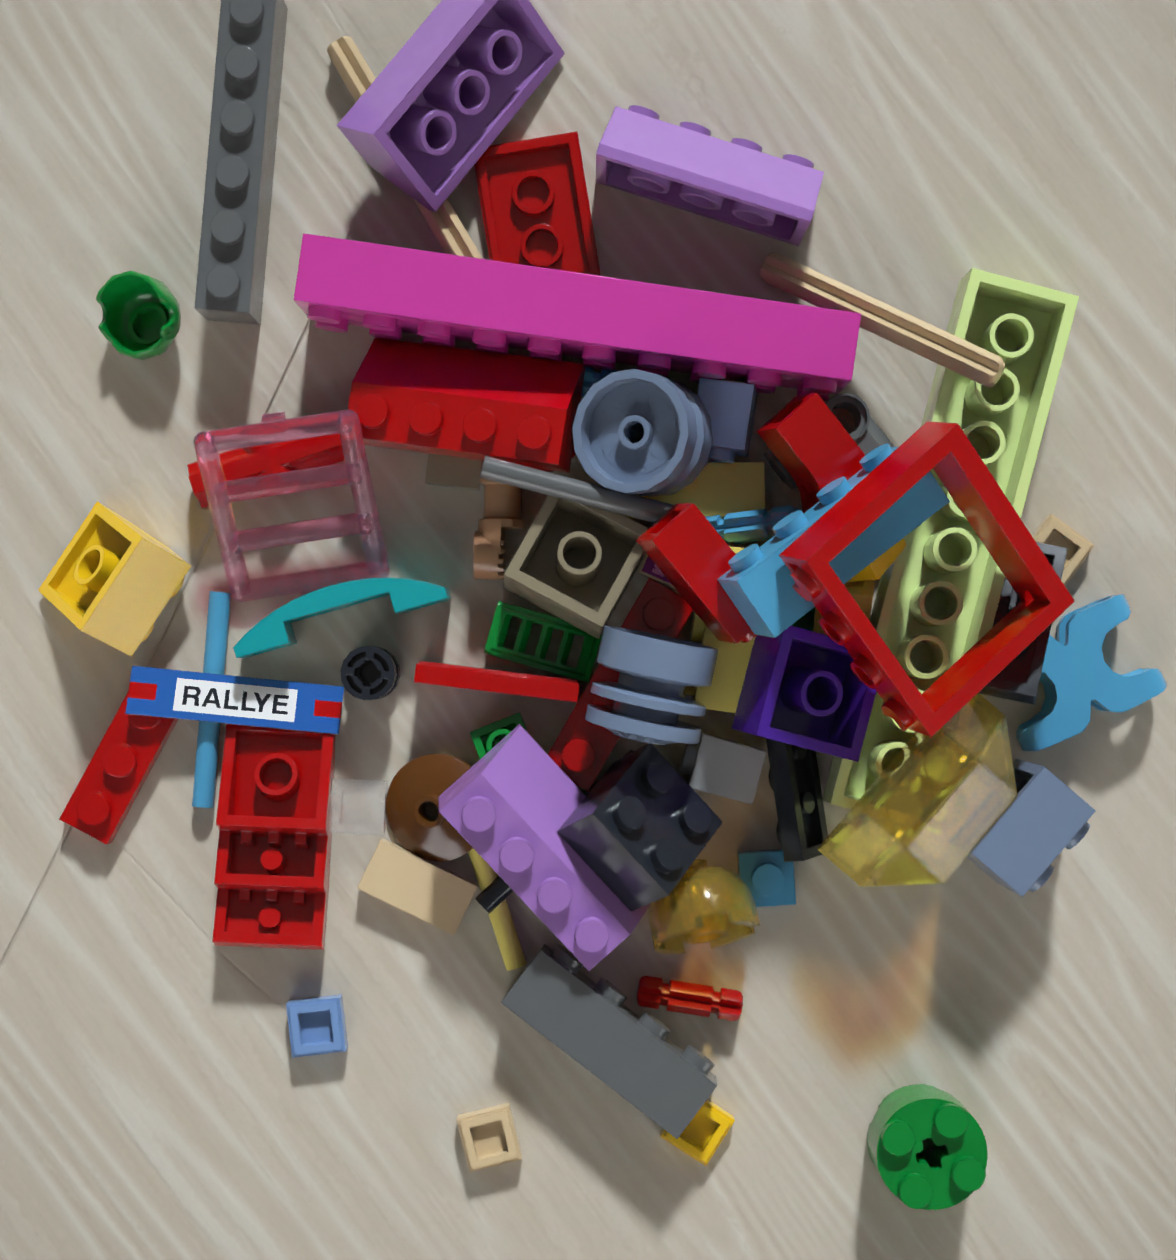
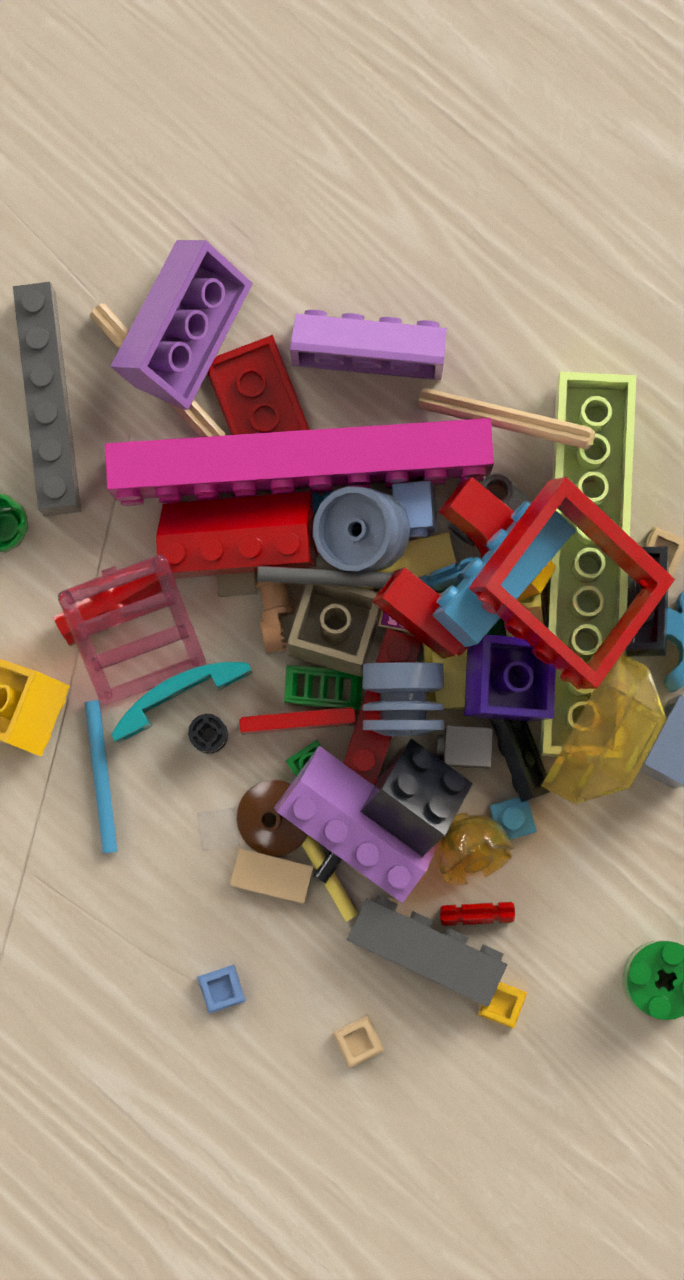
camera: 10 degrees left, 5 degrees down
(116, 773) = (48, 831): red plate -> none
(234, 700) = (118, 772): sticker -> none
(274, 838) = (164, 860): red slope -> none

